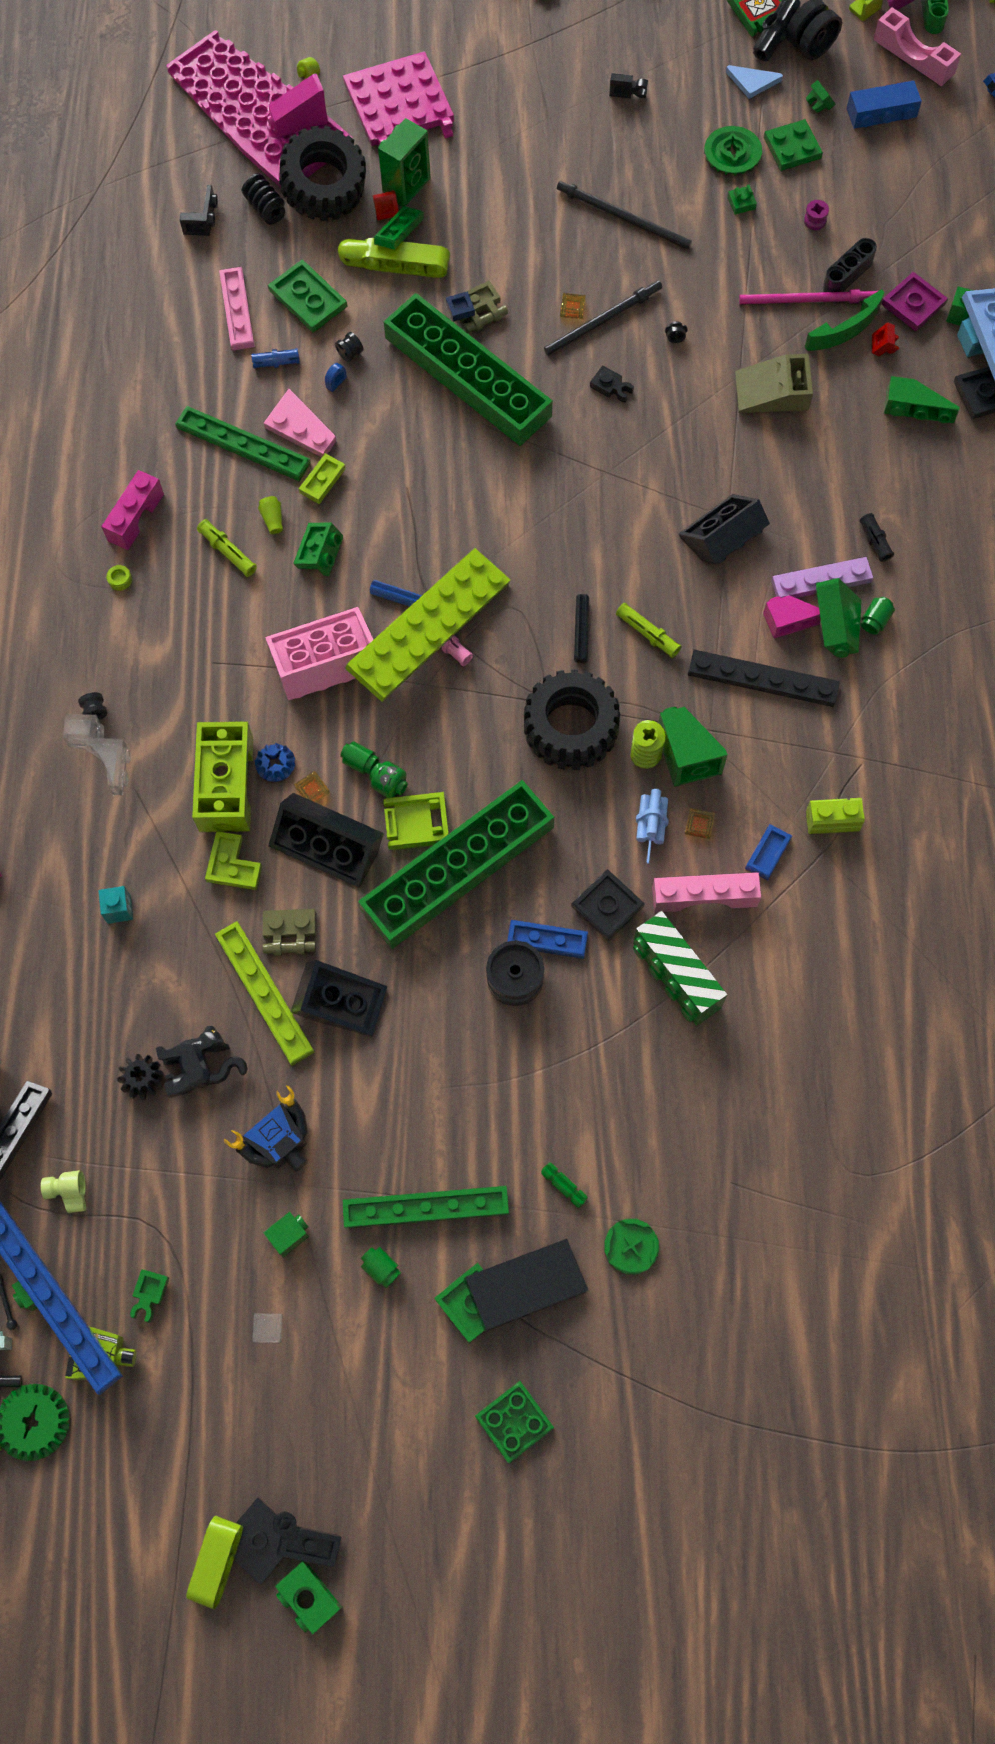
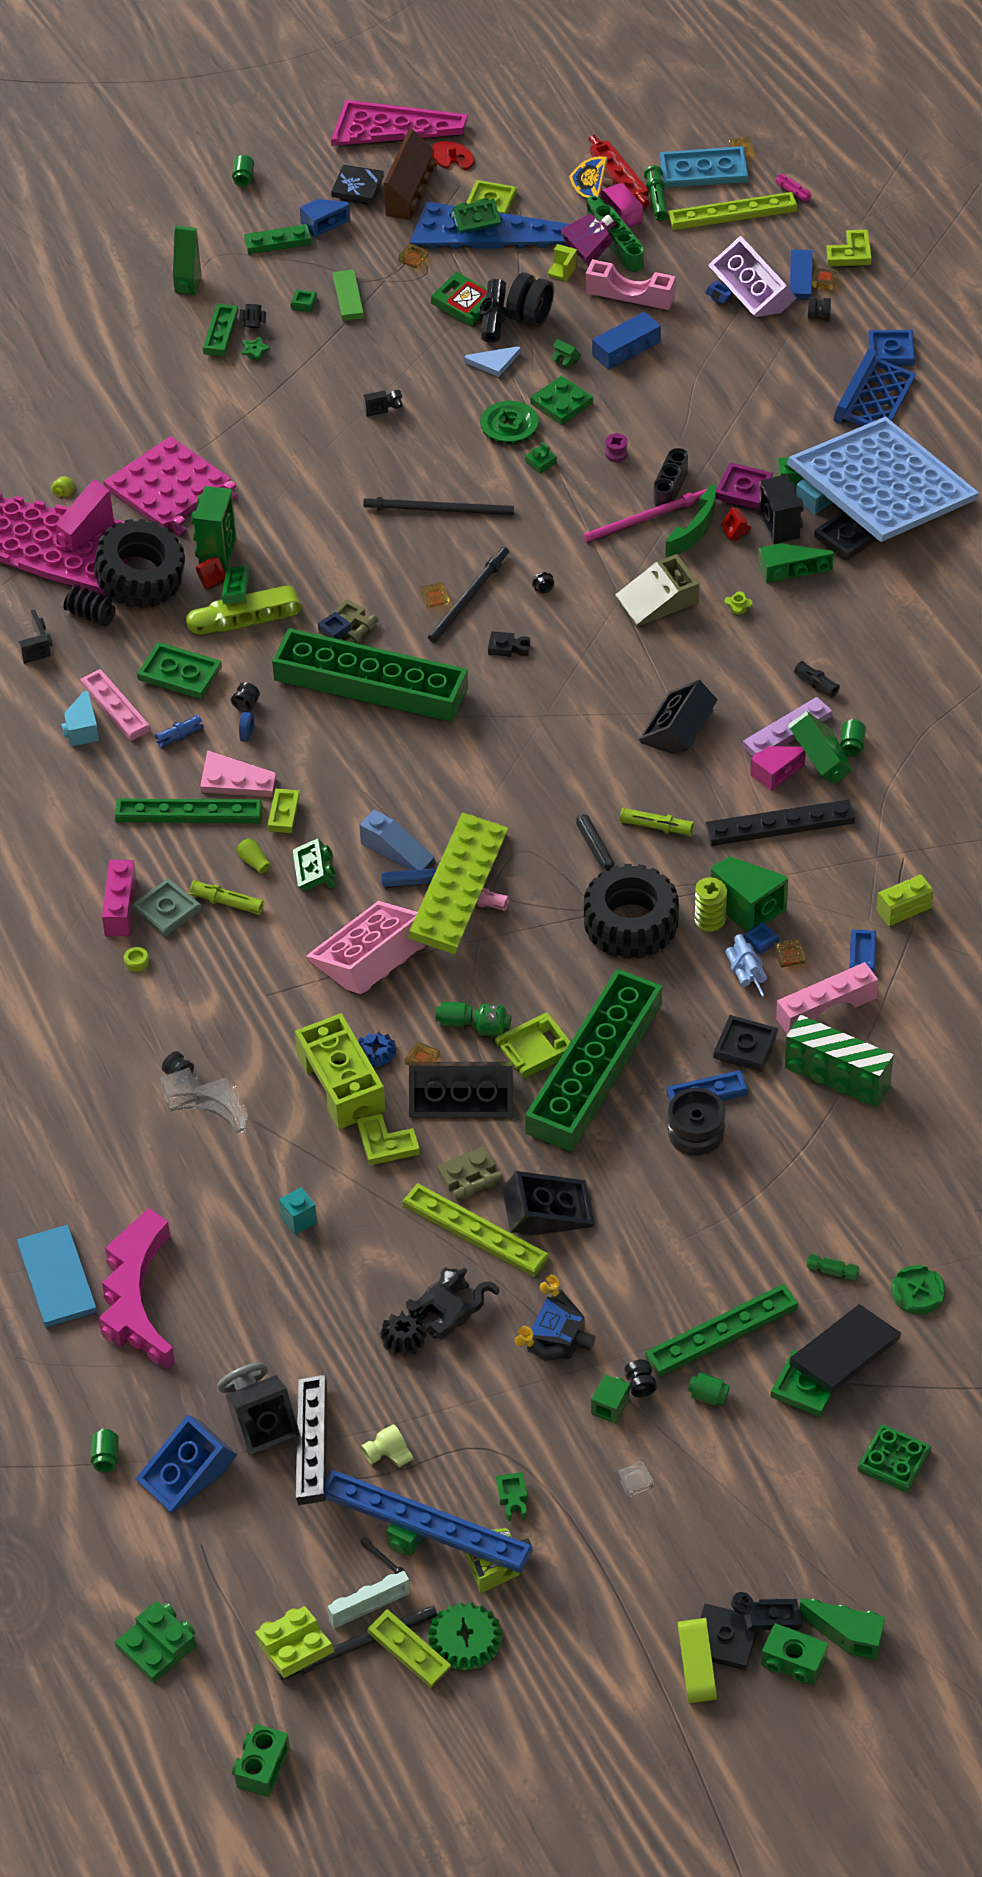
camera: 25 degrees left, 20 degrees down
(172, 535) = (166, 907): none -> sand green tile
(196, 314) = (80, 722): none -> medium azure slope
(327, 1219) = (640, 1378): none -> black wheel
(375, 1599) = (850, 1629): none -> green slope
(401, 553) = (393, 842): none -> medium blue slope
(681, 796) = (761, 938): none -> blue tile
(845, 430) = (738, 603): none -> lime plate
(933, 341) = (780, 509): none -> black brick

